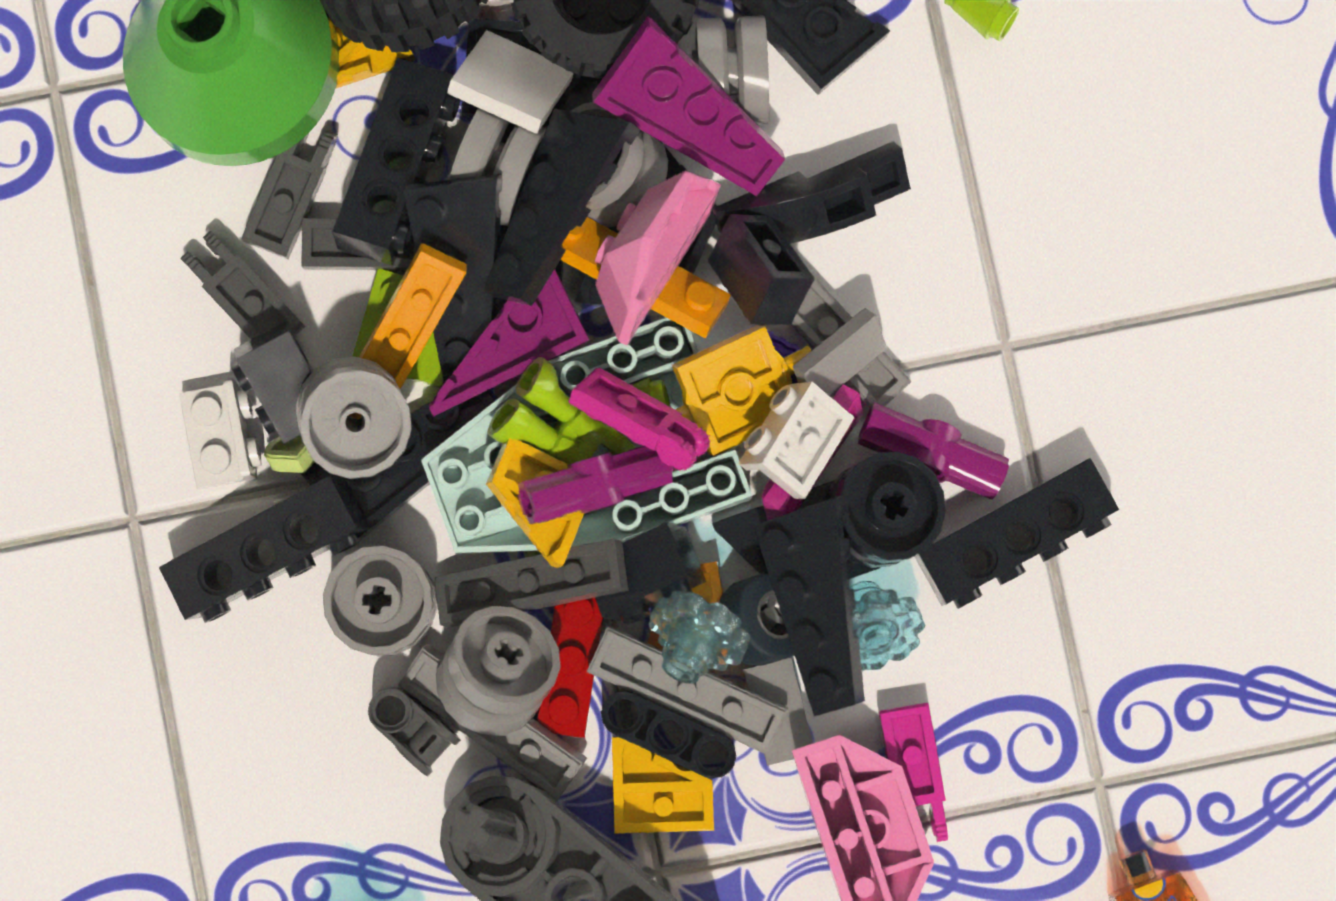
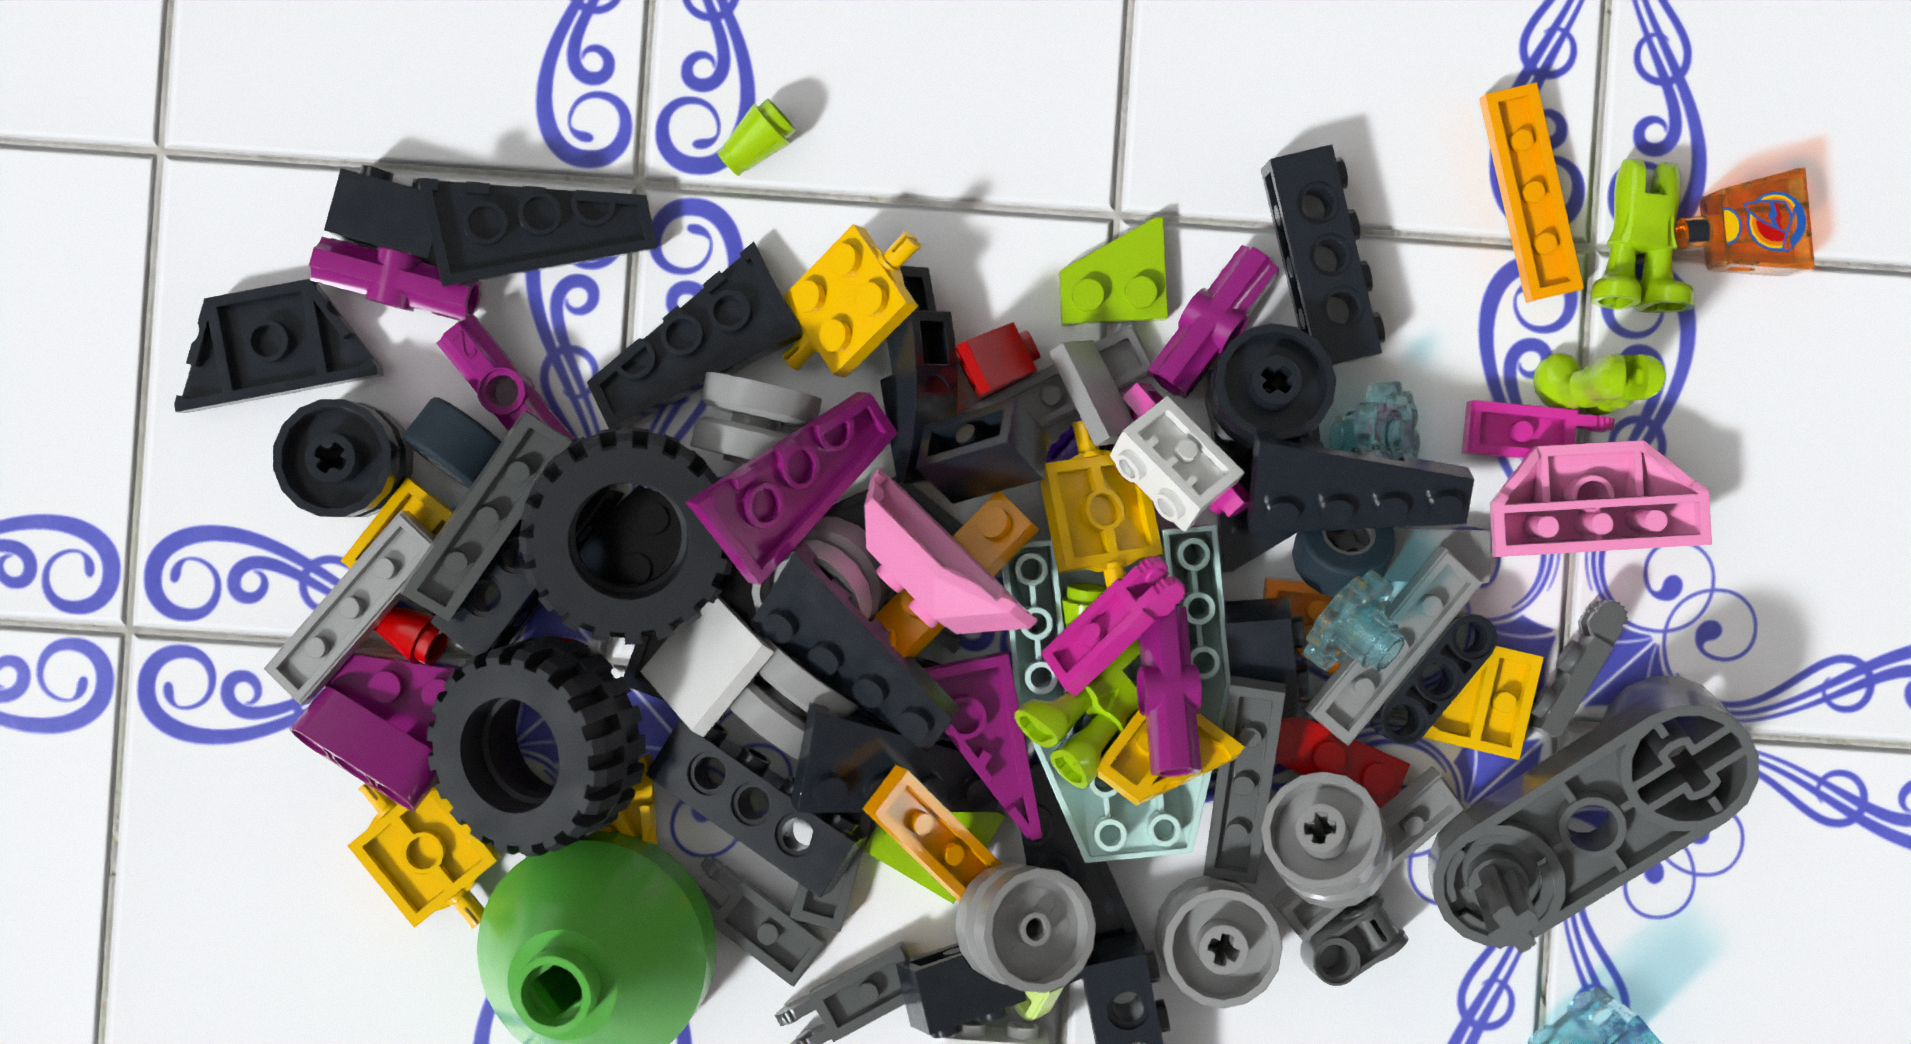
camera: 70 degrees left, 5 degrees up
(714, 866) = (1579, 667): none -> dark grey hinge
(845, 266) = (997, 359): none -> red slope
(861, 124) = (850, 300): none -> yellow plate
(946, 359) = (1118, 281): none -> lime wing
(980, 814) = (1602, 386): none -> lime piece
(1128, 817) = (1644, 226): none -> lime piece
(1130, 708) = (1531, 192): none -> light orange plate

